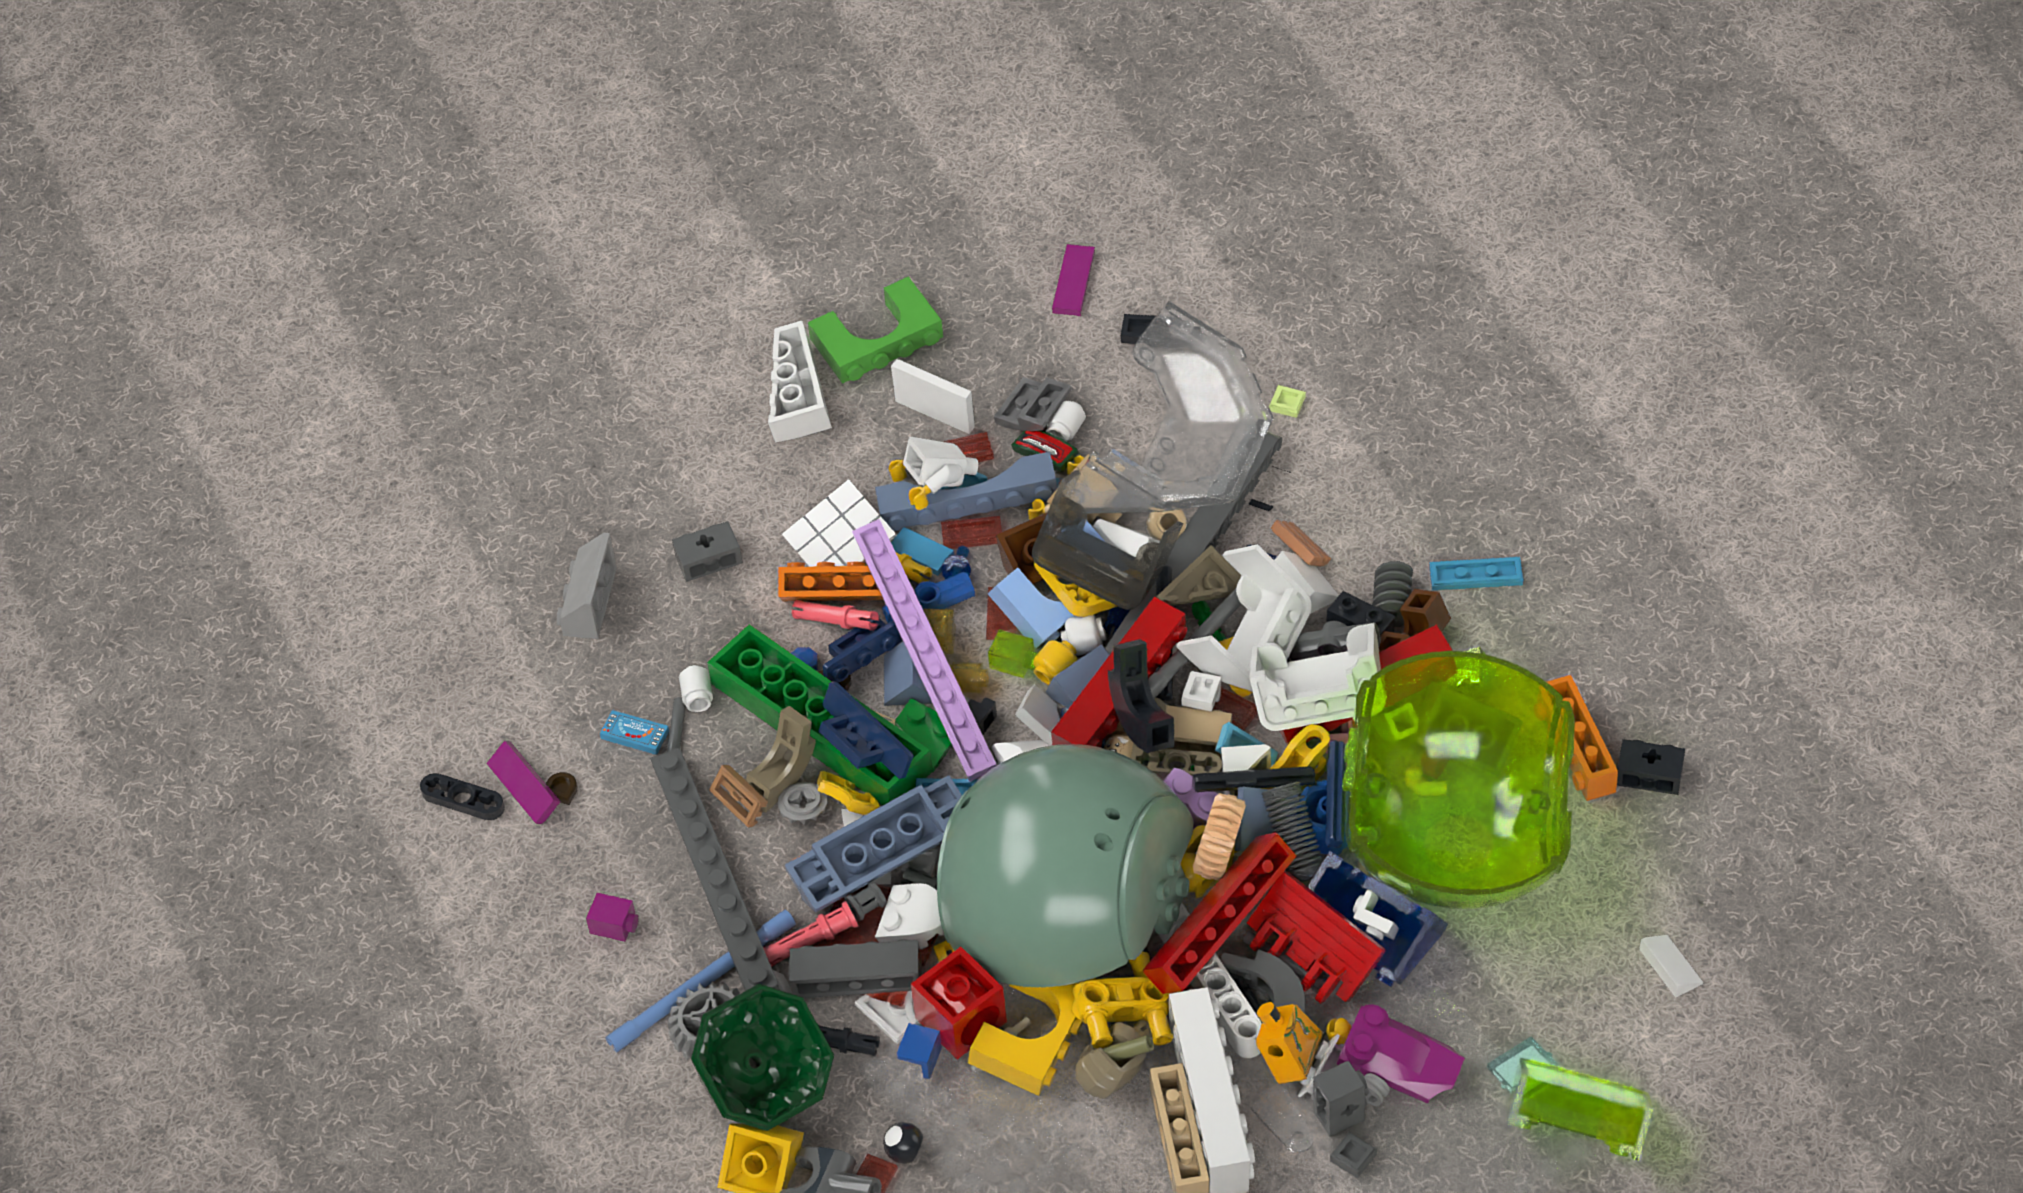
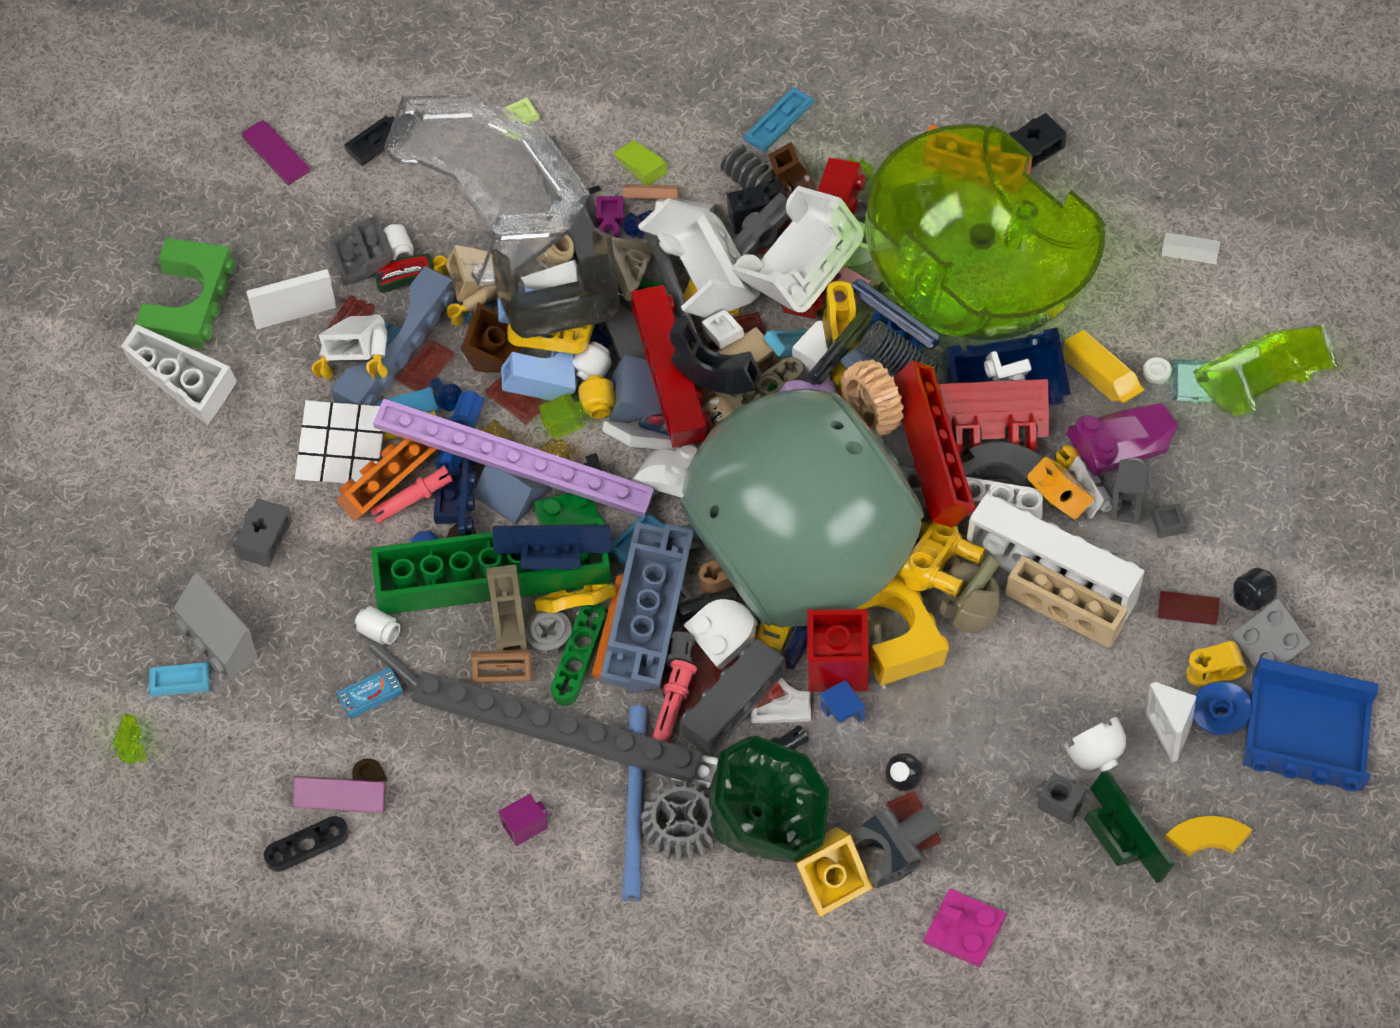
camera: 50 degrees left, 5 degrees up
(444, 612) = (127, 741): none -> clear neon green bracket
(530, 605) = (179, 679): none -> medium azure tile
(798, 833) = (576, 653): none -> green beam
(1249, 530) = (610, 213): none -> magenta plate
(1325, 516) = (641, 162): none -> lime slope
(1458, 987) = (1101, 367): none -> yellow piece
(1507, 1034) = (1157, 370): none -> white tile

